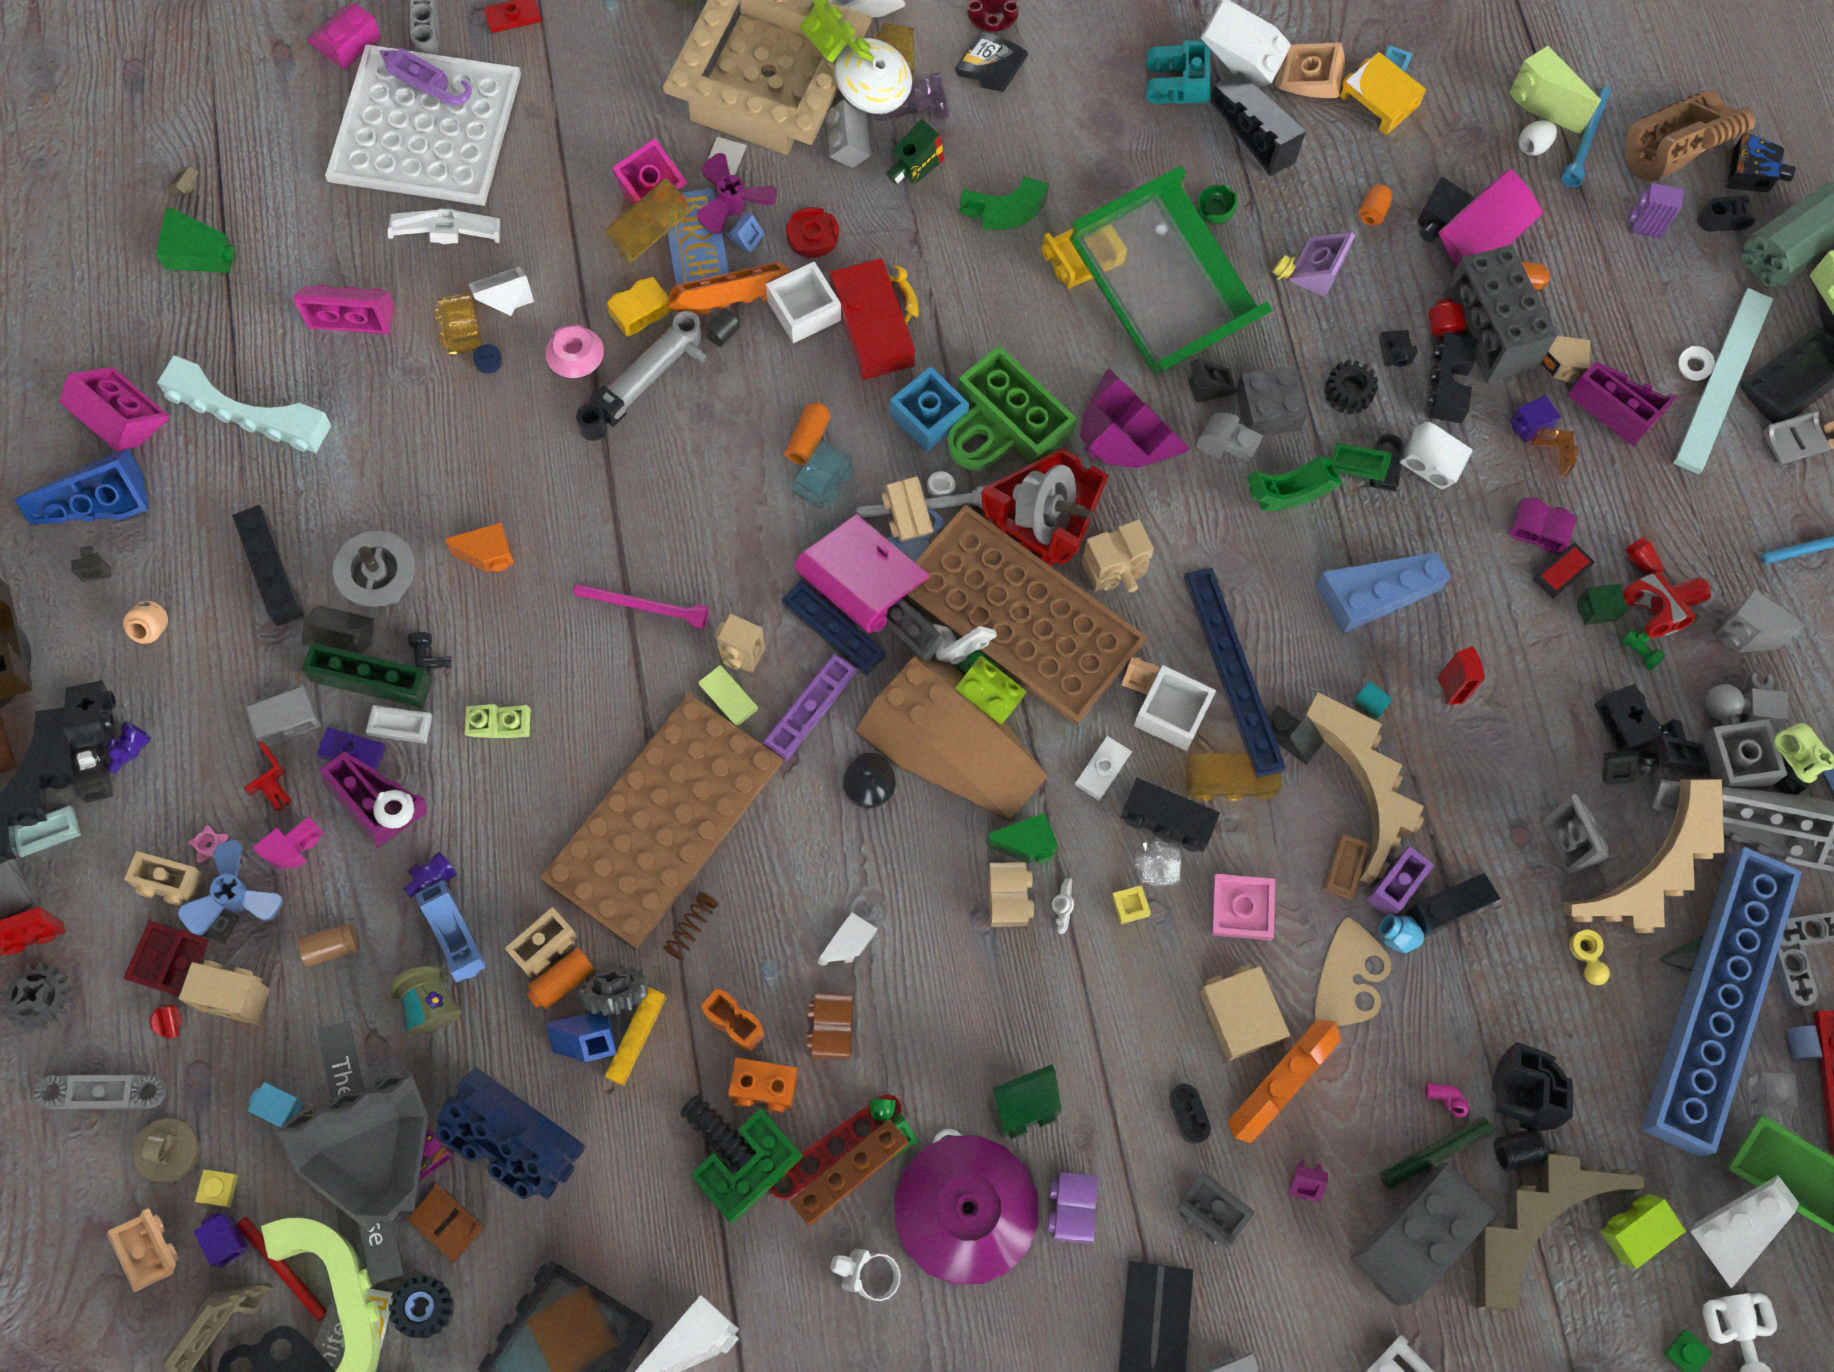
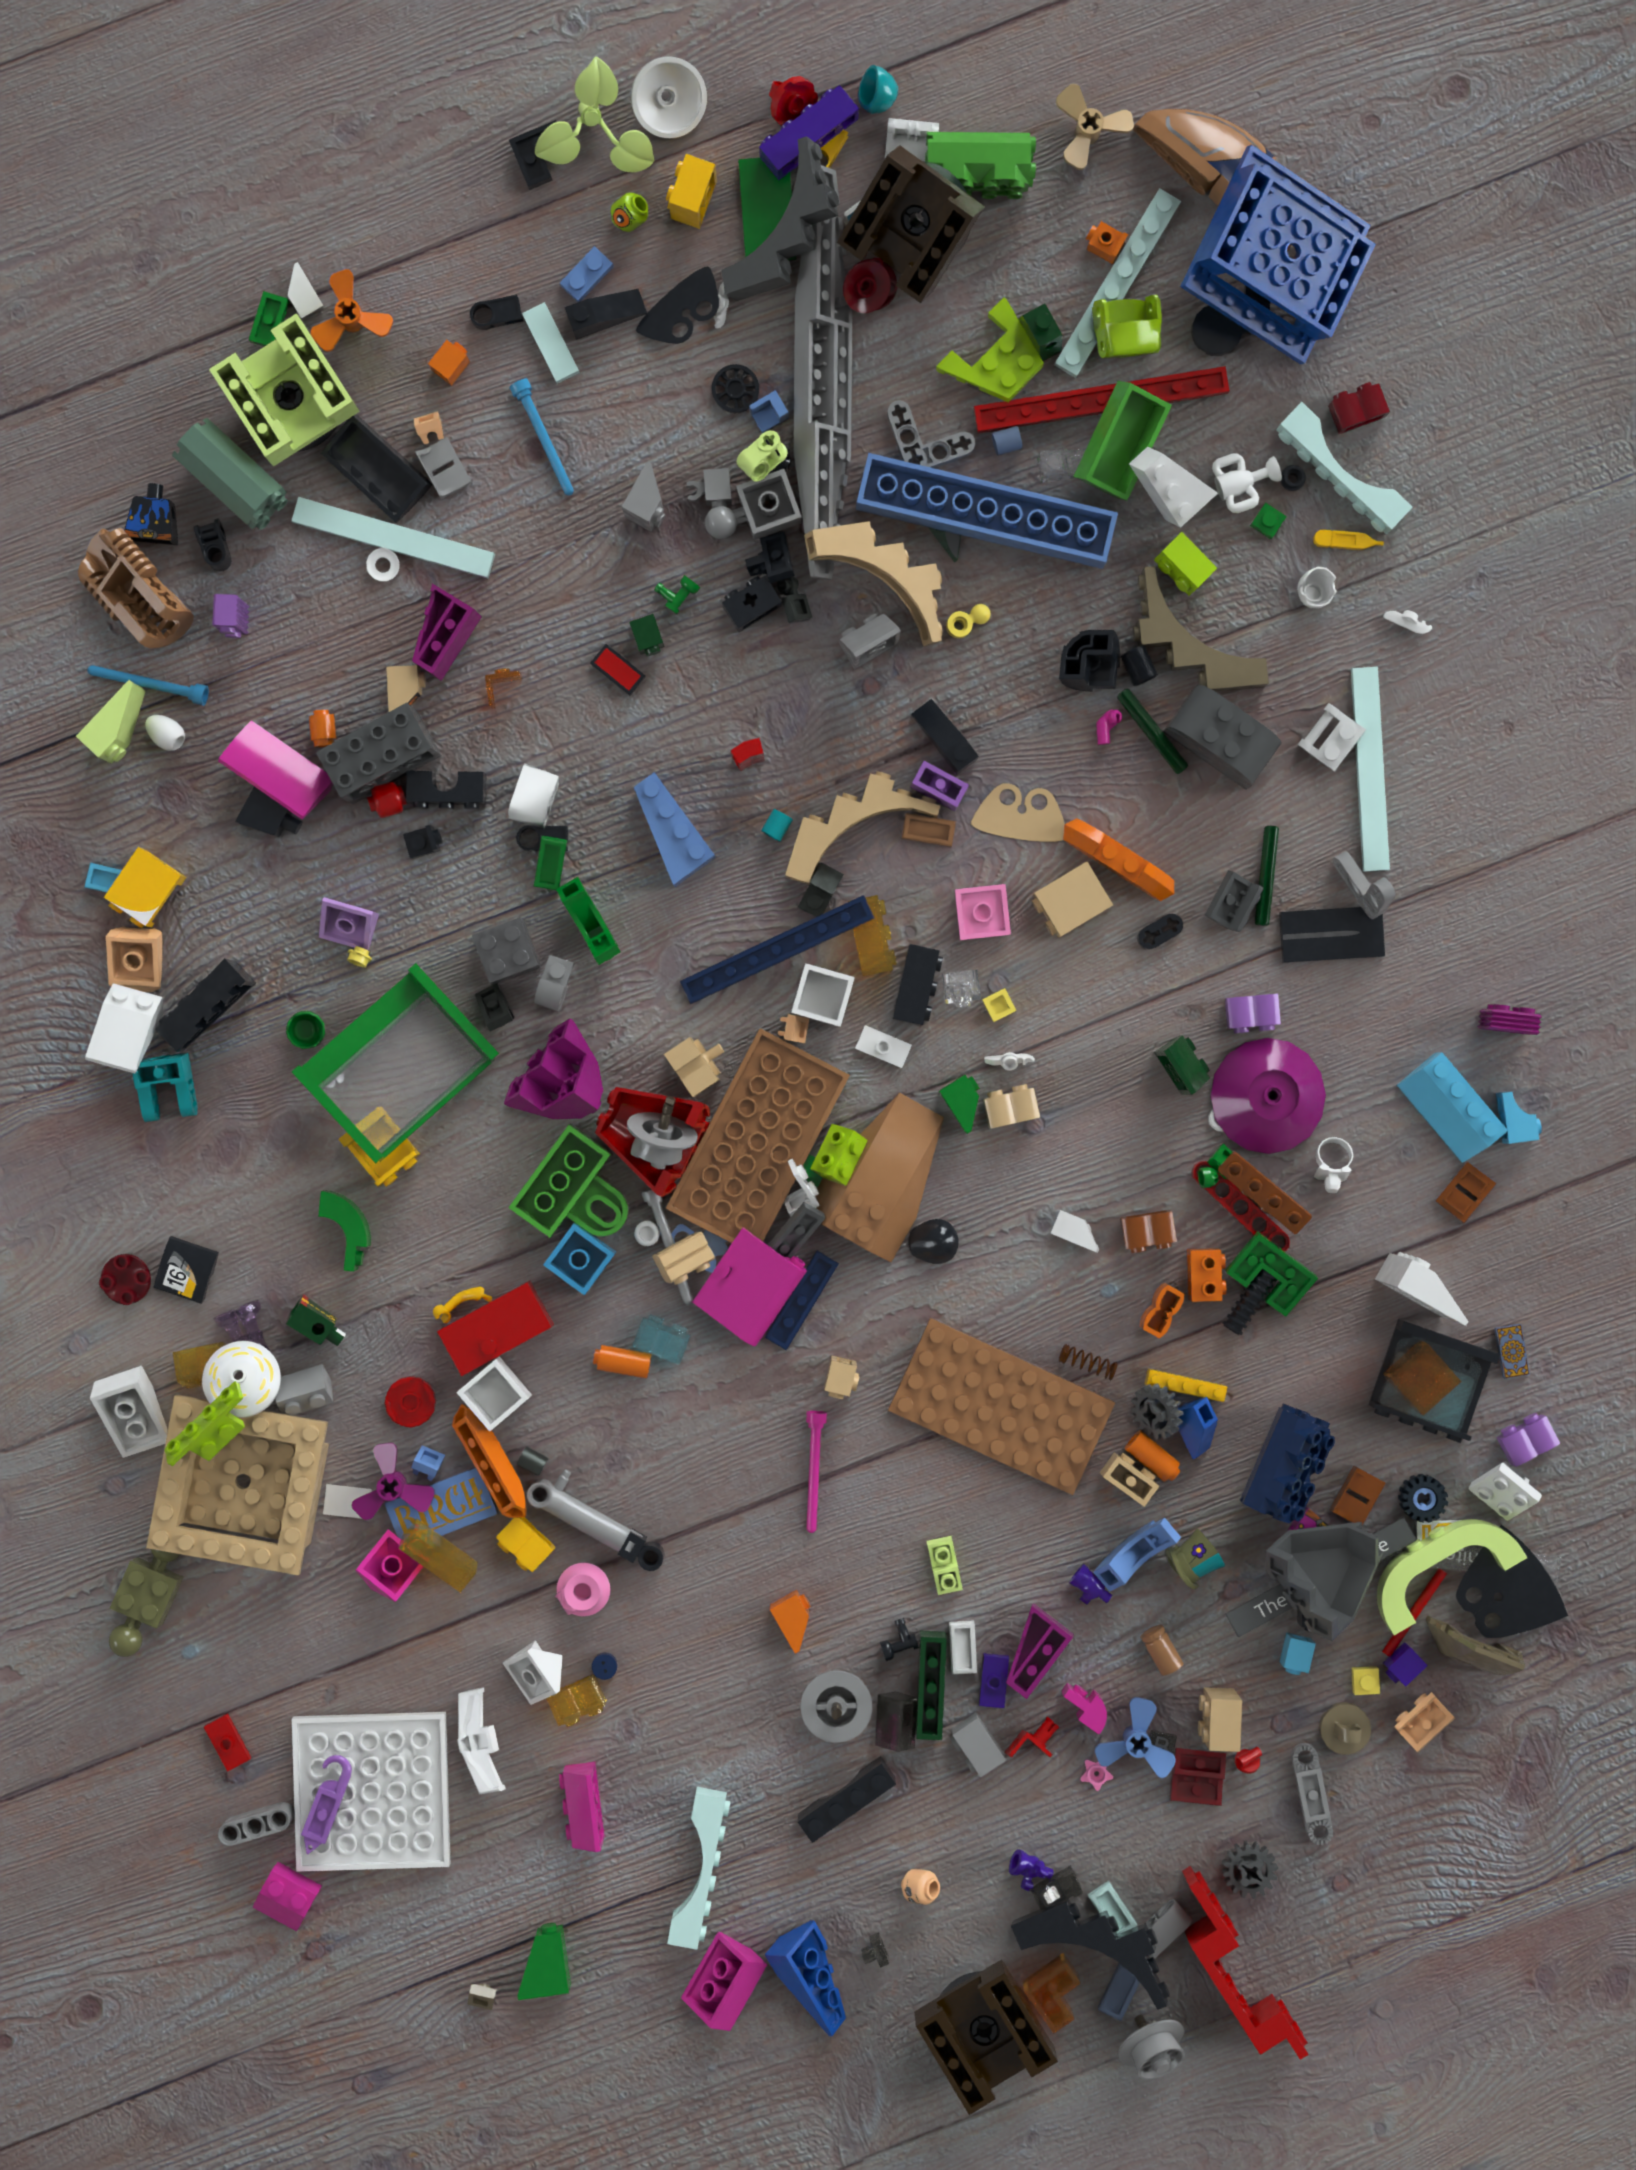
camera: 95 degrees left, 20 degrees up
(88, 714) = (1012, 1906): black brick -> none
(165, 878) = (1137, 1798): tan brick -> none
(399, 819) = (1052, 1617): white piece -> none
(727, 696) = (882, 1377): yellowish green tile -> none
(810, 707) = (879, 1305): medium lavender plate -> none
(1240, 1261) = (1266, 876): none -> dark green axle
(1308, 1182) = (1197, 830): magenta tile -> none
(1358, 375) = (459, 873): black tyre -> none
(1375, 205) = (274, 879): orange brick -> none
(1401, 933) = (980, 779): medium azure rock -> none
(1533, 417) = (474, 710): dark purple brick -> none
(1542, 525) = (579, 693): magenta brick -> none
(1644, 556) = (592, 599): red cone -> none
(1667, 602) = (634, 577): red connector -> none

